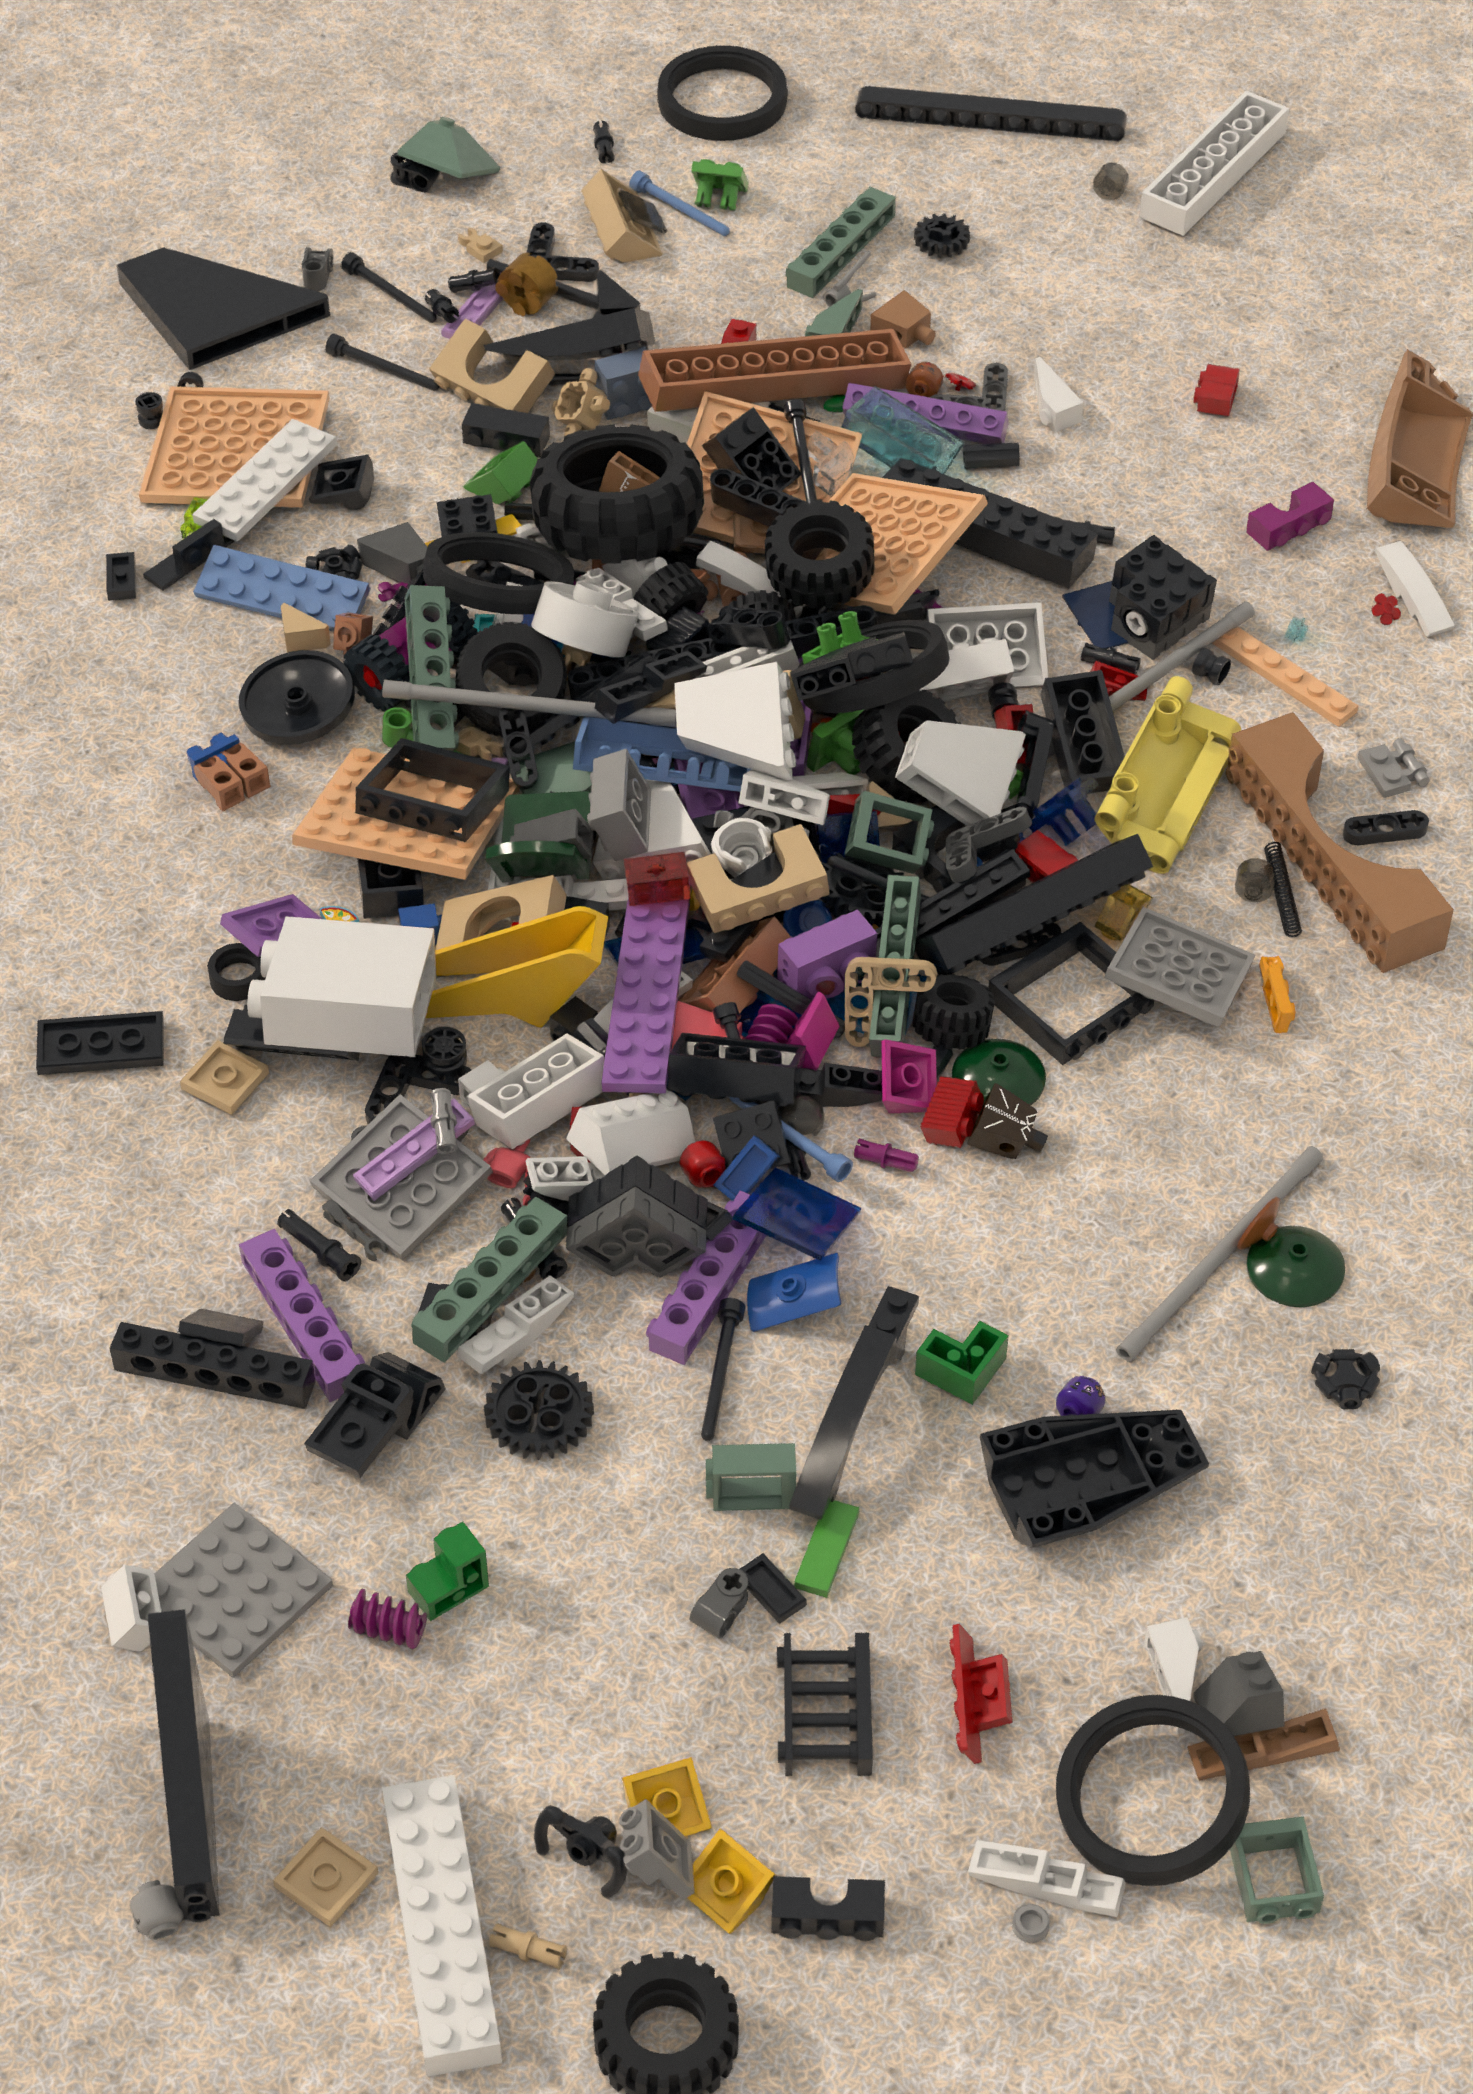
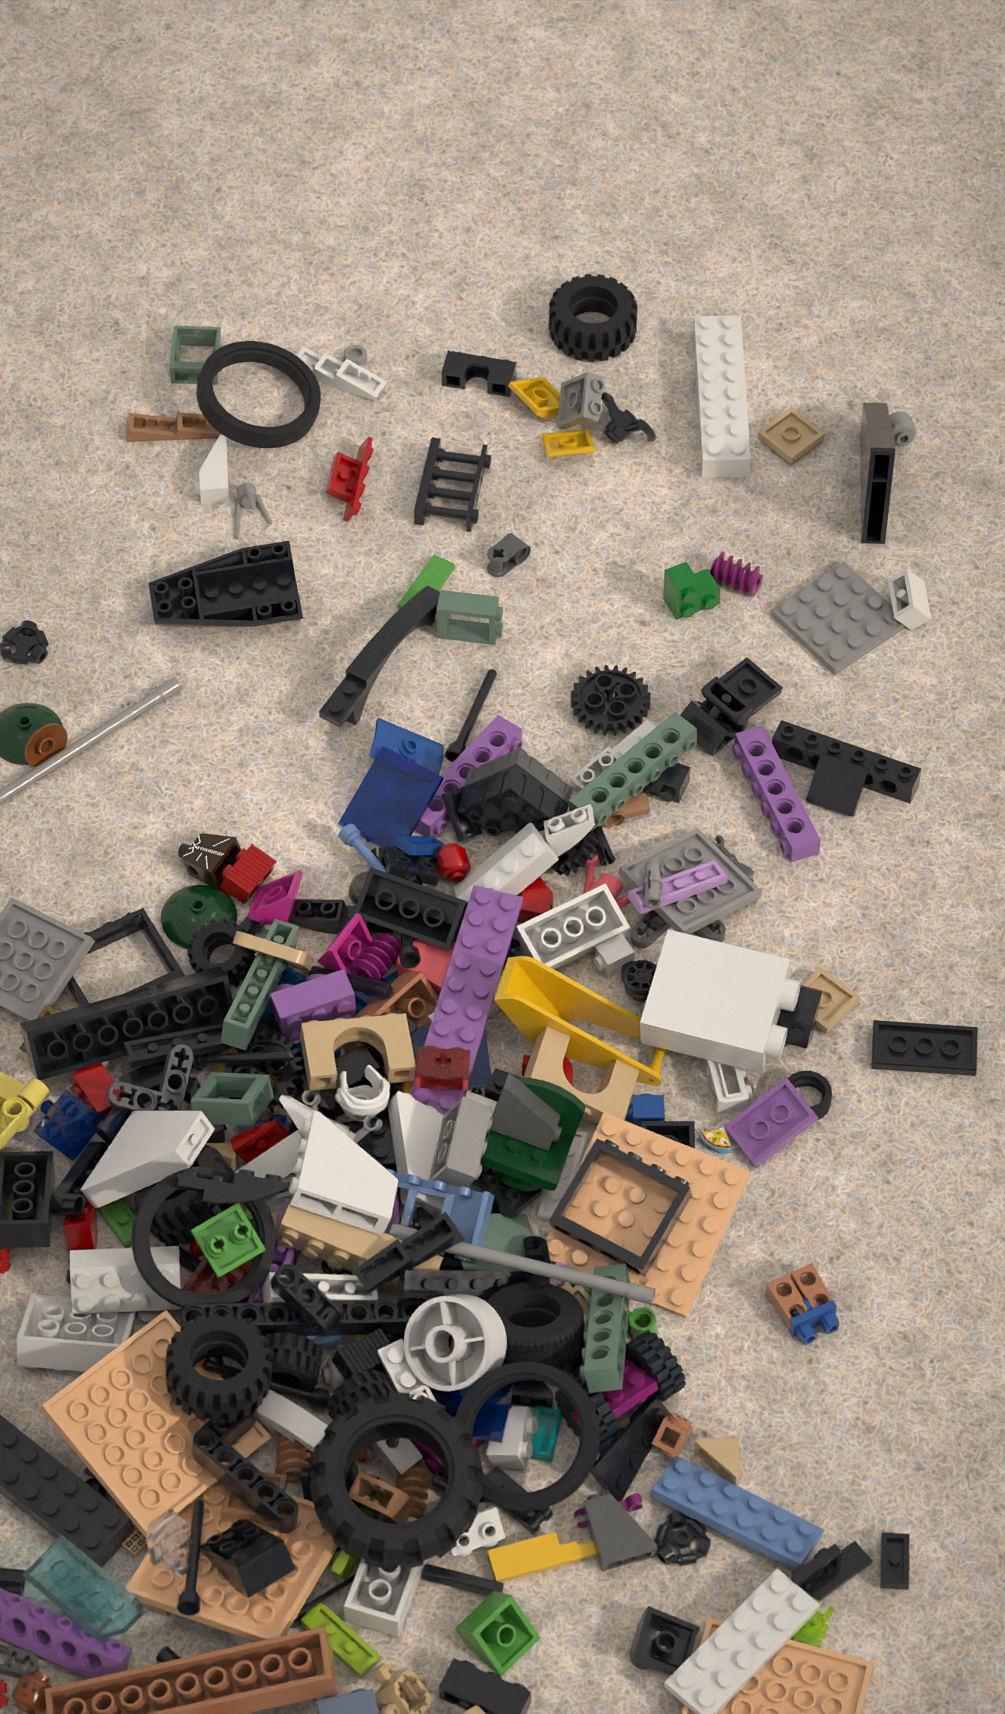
camera: 170 degrees left, 5 degrees up
(296, 697) = (733, 1366): black dish -> none
(328, 1251) = (752, 842): black pin -> none
(467, 515) = (543, 1566): black plate -> none
(528, 1946) = (668, 382): tan pin -> none
(772, 1589) = (470, 567): black tile -> none
(886, 1155) = (308, 856): magenta axle -> none
(962, 1367) = (296, 677): green brick -> none
(1080, 1397) = (220, 648): dark purple head -> none
(1119, 1639) = (248, 498): none -> light grey plant
(1243, 1694) = (182, 441): dark grey slope -> none

